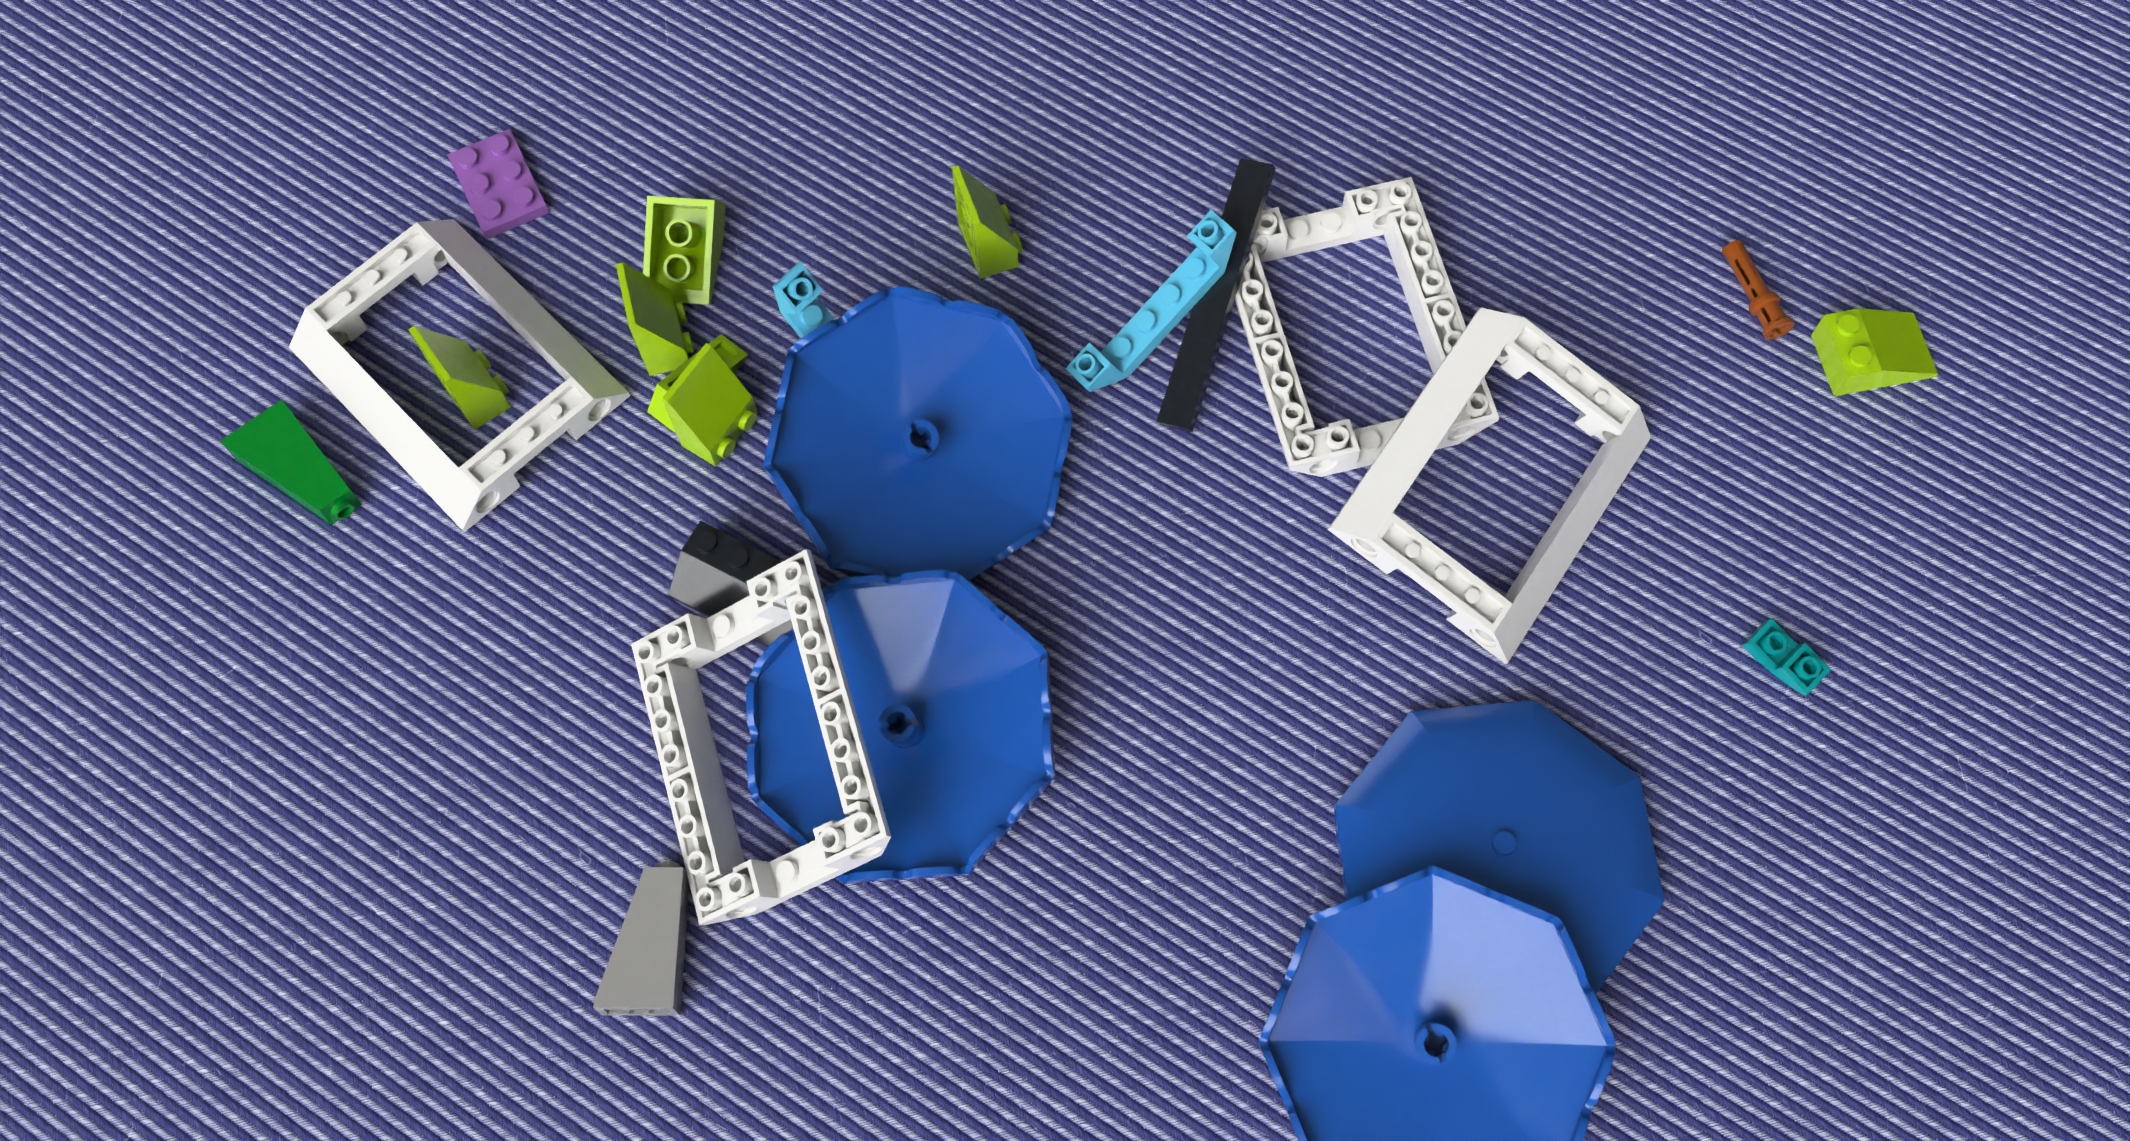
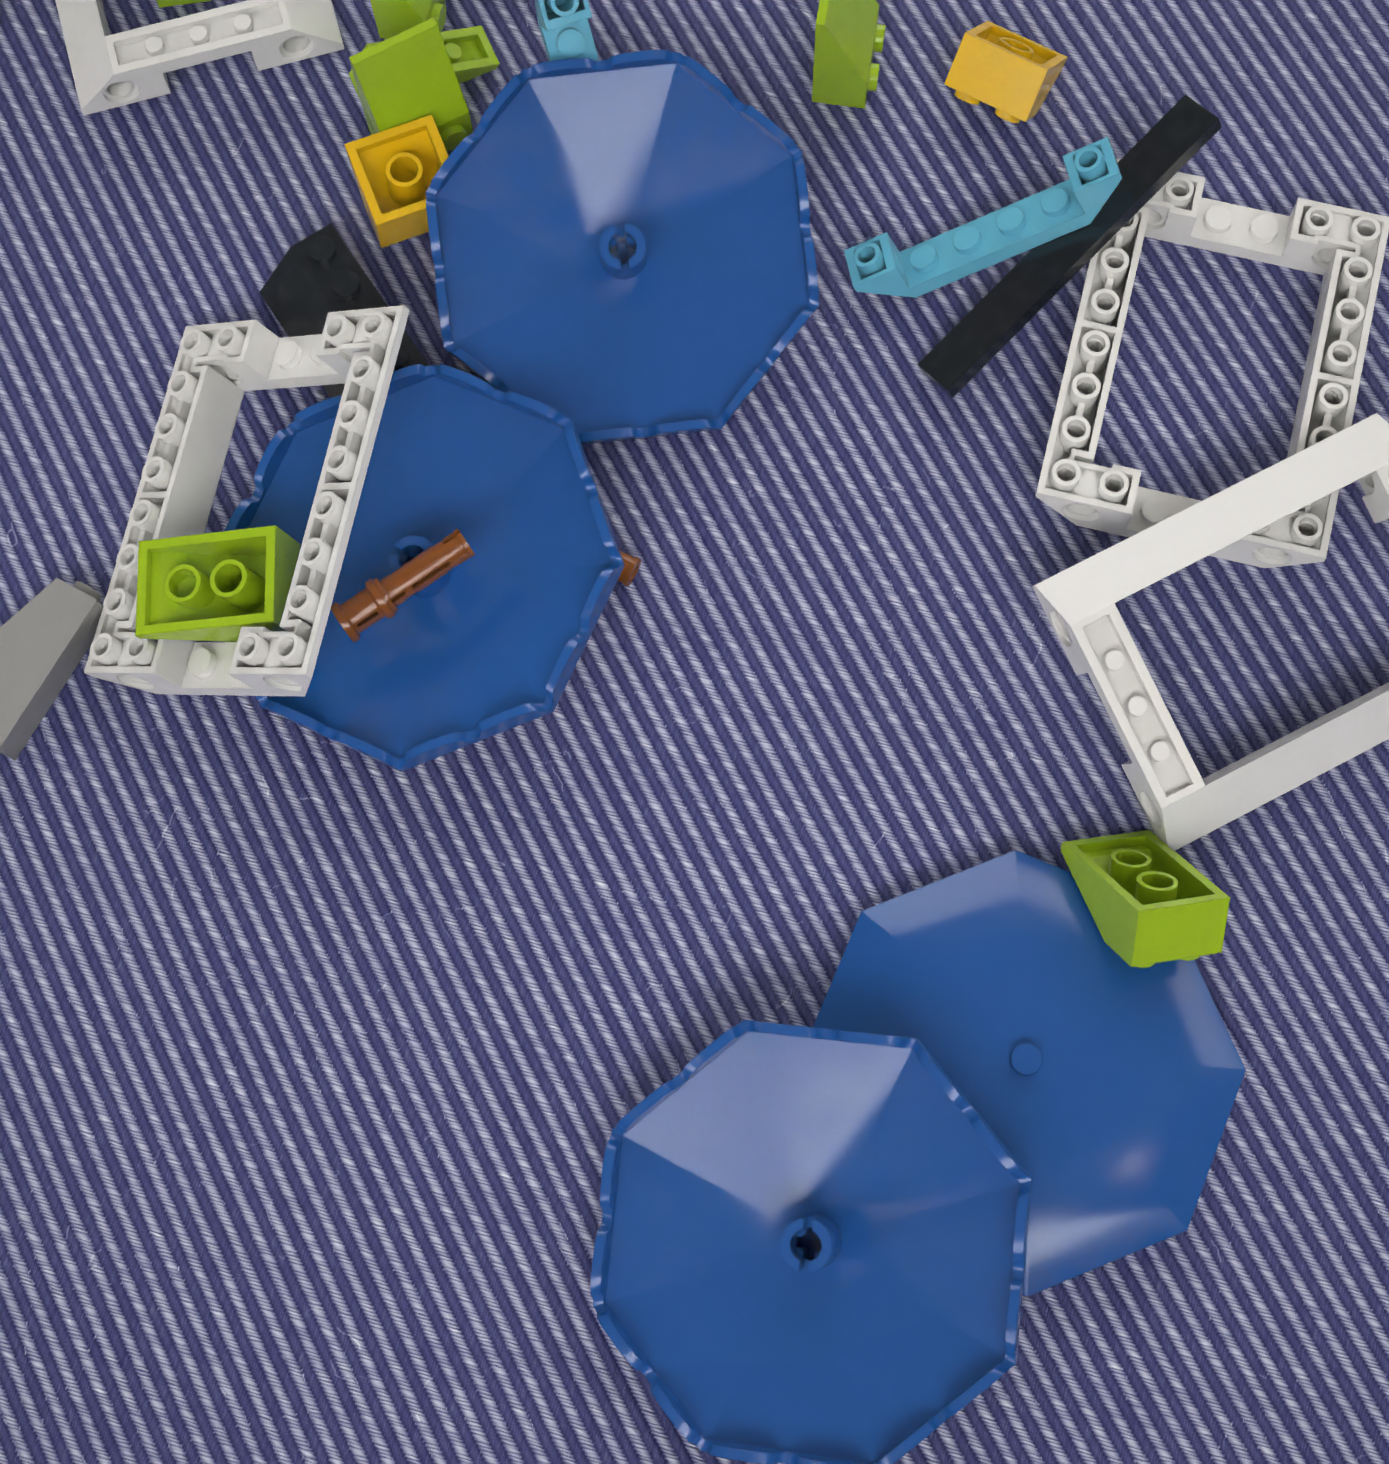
camera: 30 degrees right, 5 degrees up
(731, 465) = (394, 174): none -> yellow slope
(771, 811) = (214, 583): none -> lime slope
(896, 758) = (382, 597): none -> dark orange pin
(1101, 198) = (1004, 71): none -> yellow slope
(1517, 696) = (1147, 898): none -> lime slope

